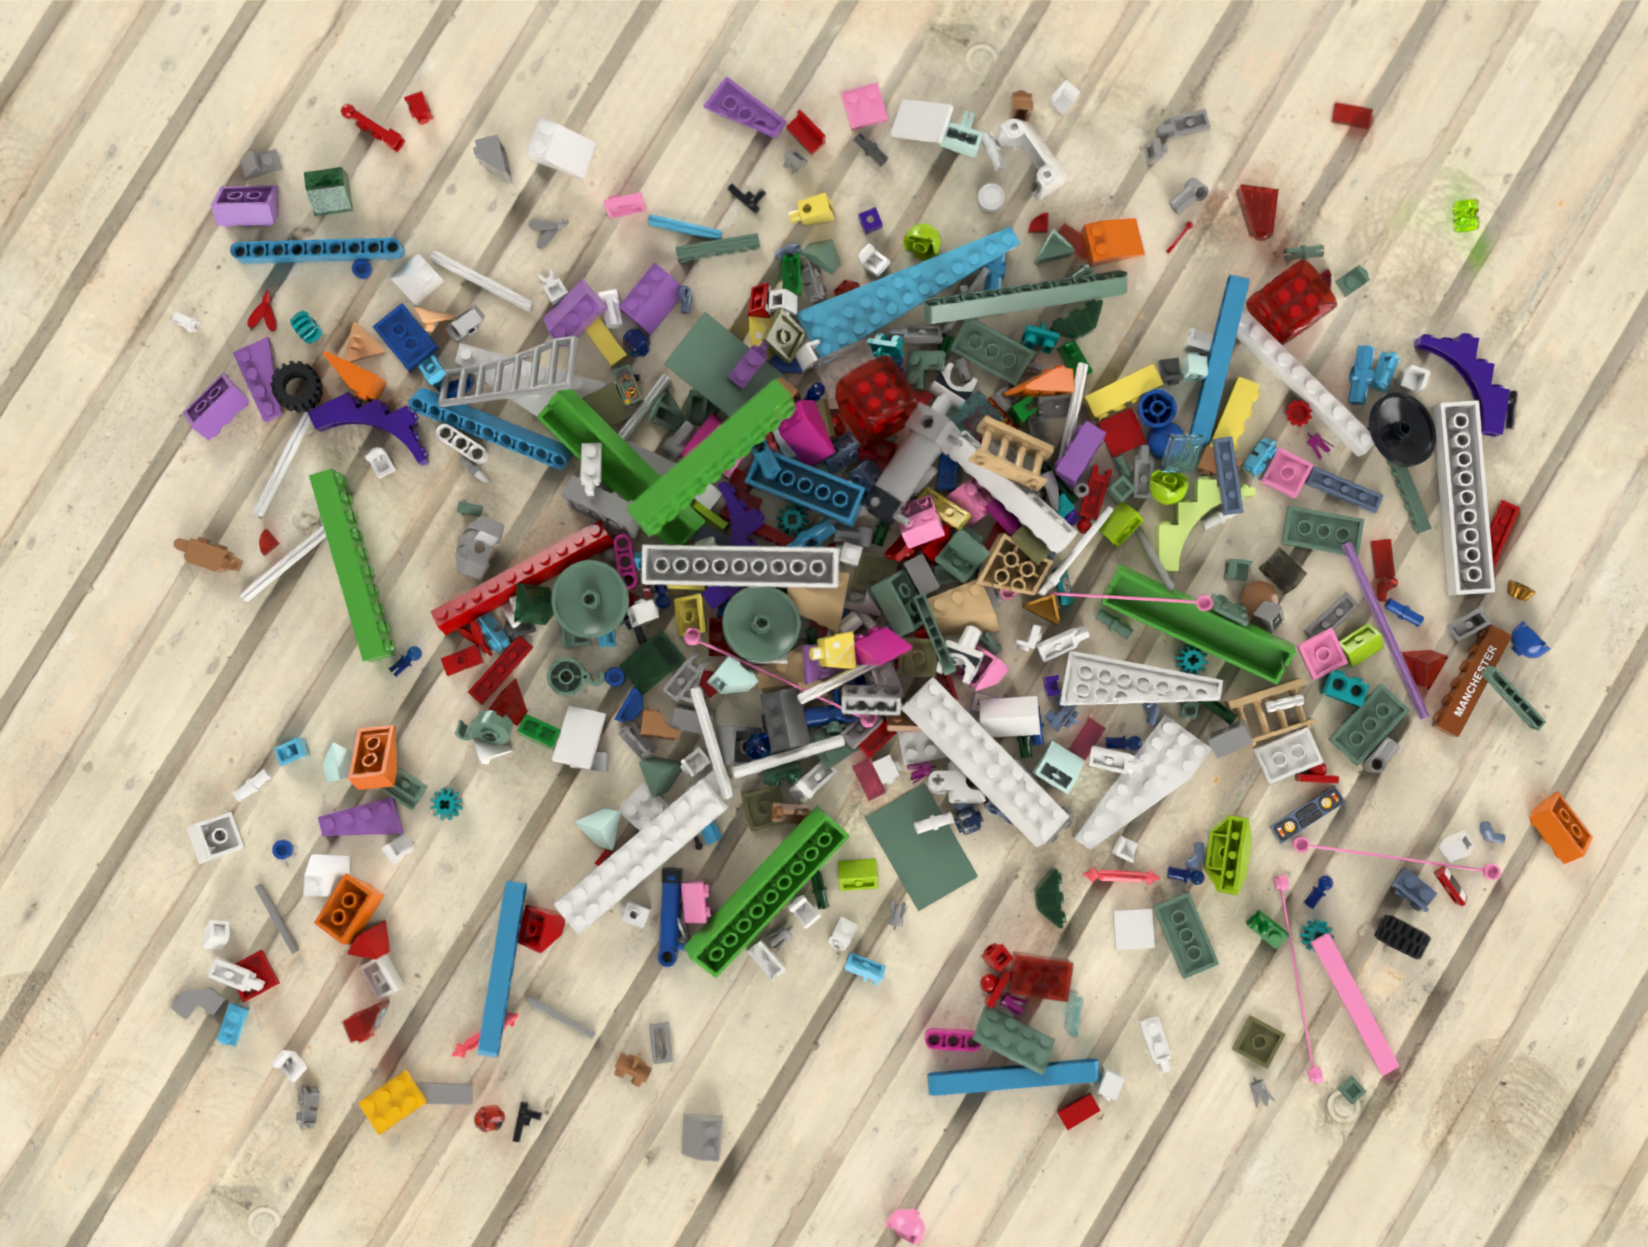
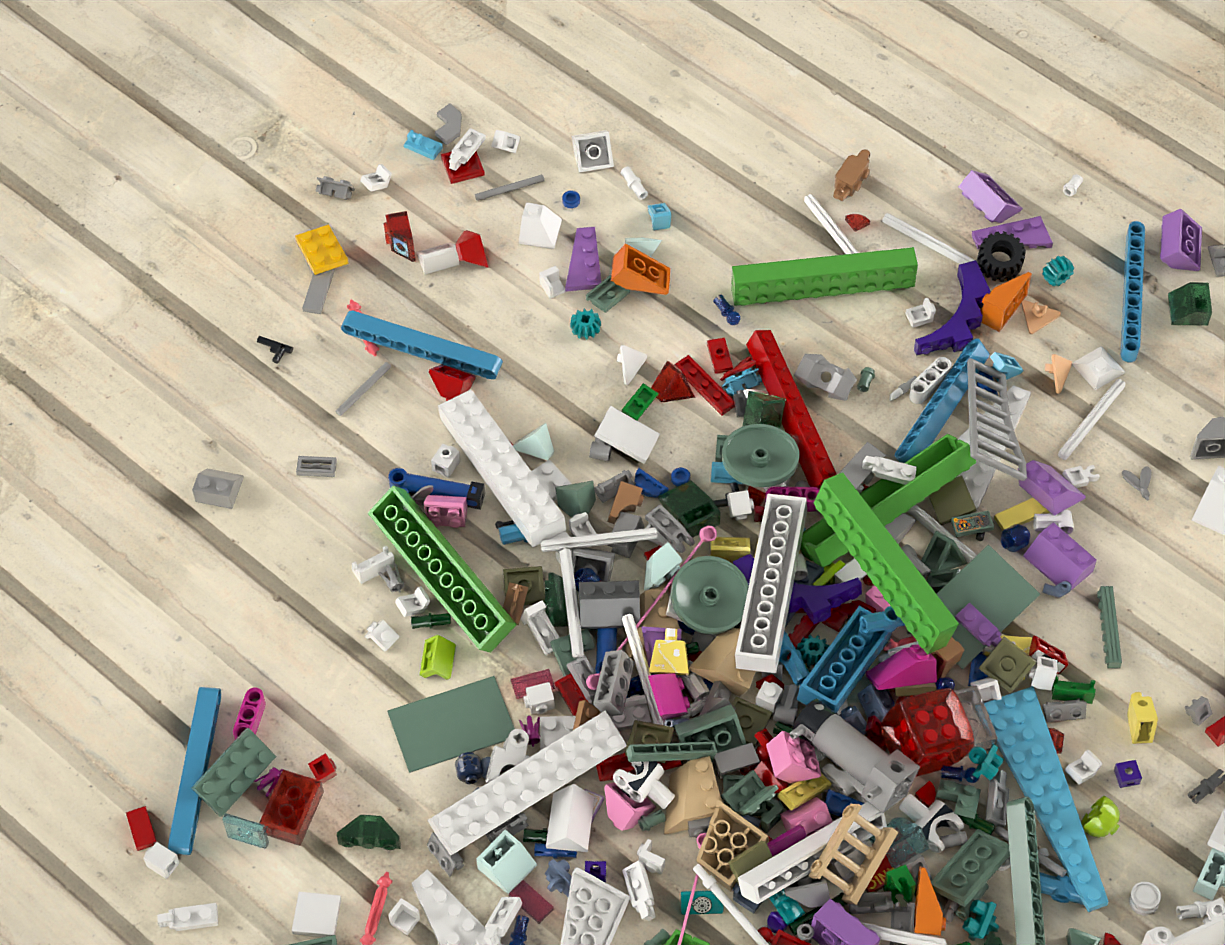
camera: 105 degrees right, 30 degrees down
(265, 310) = (1078, 245): red piece -> none
(349, 909) = (505, 237): orange slope -> none
(362, 269) = (1112, 325): blue tile -> none
(405, 337) = (1038, 350): blue tile -> none
(464, 323) = (1049, 398): light grey piece -> none
(486, 728) = (650, 360): sand green piece -> none
(489, 1118) = (285, 318): clear red head -> none
(579, 678) = (687, 444): sand green piece -> none
(624, 205) = (1158, 543): bright pink plate -> none
(633, 1066) = (299, 438): medium nougat hips -> none
(662, 601) = (749, 526): clear blue pin -> none
(684, 227) = (1133, 600): medium azure axle -> none
(748, 197) = (1161, 663): black hose -> none
(787, 250) = (1101, 691): sand blue arm -> none
(823, 255) = (1091, 720): sand green slope -> none
(834, 728) = (591, 653): sand green plate -> none
(865, 967) = (343, 648): medium azure plate -> none
(897, 915) = (384, 684): light grey piece -> none
(907, 1225) = (78, 645): bright pink cylinder -> none
(933, 822) = (474, 734): white pin -> none
(994, 986) = (294, 763): red tile -> none
(1044, 608) = (680, 878): pearl gold slope -> none

